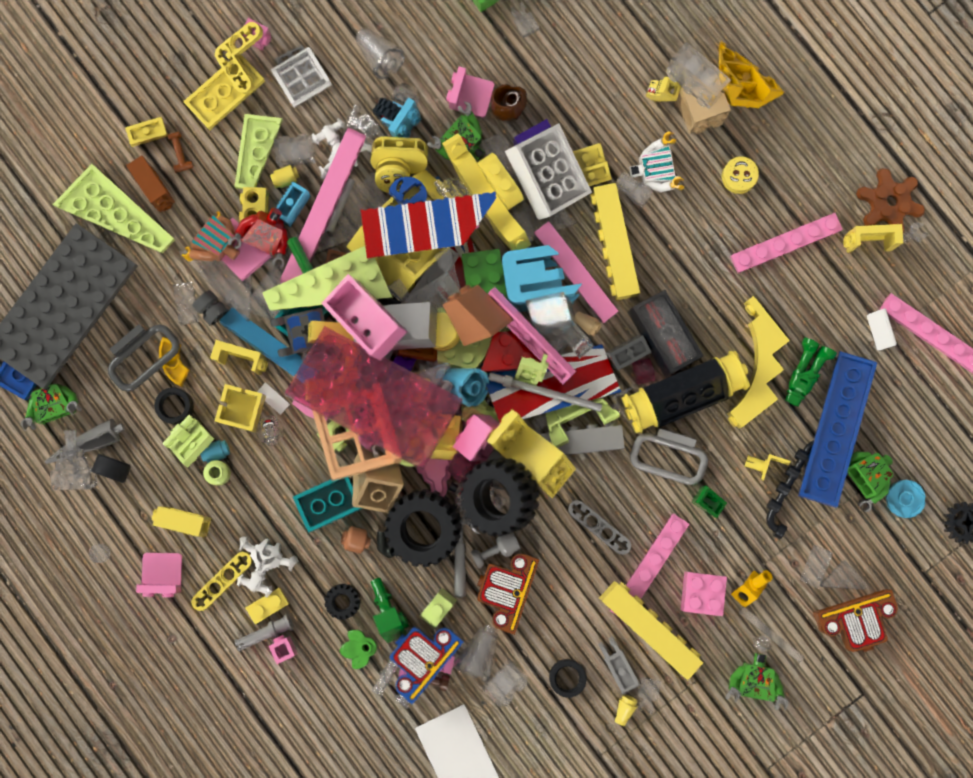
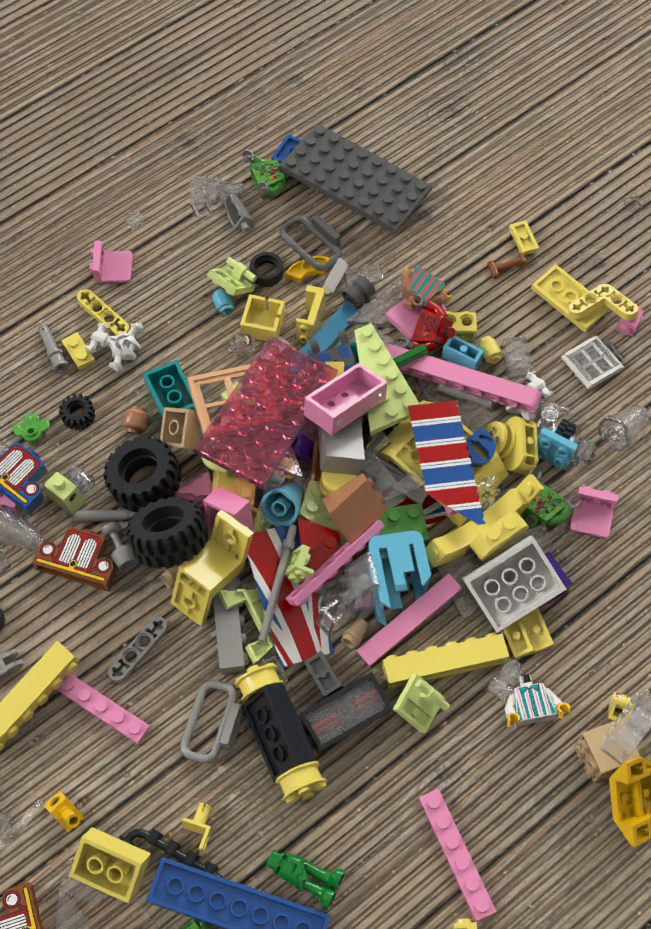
camera: 90 degrees right, 20 degrees down
(104, 204) = (448, 214): yellowish green wing -> none
(111, 468) = (208, 220): black tyre -> none
(150, 184) = (472, 239): dark orange window -> none
(181, 521) = (158, 275): light yellow window -> none
(189, 333) = (335, 276): none -> white slope
(217, 472) = (202, 303): yellowish green head -> none
(255, 147) = (515, 324): yellowish green wing -> none
(282, 649) = (35, 360): bright pink brick -> none
(389, 622) = (55, 448): green brick -> none
(420, 592) = (82, 480): none -> clear cone
(508, 102) = (587, 547): reddish brown hair -> none
(643, 371) = (305, 694): clear pink slope -> none
(657, 265) = (419, 703): none -> yellowish green plate
(703, 593) = (60, 756): bright pink brick -> none
(709, 501) = (160, 763): green slope -> none
(740, 175) = (531, 798): light yellow head -> none
(767, 340) = (340, 828): light yellow arch -> none
(803, 541) = (109, 865): none -> light yellow brick

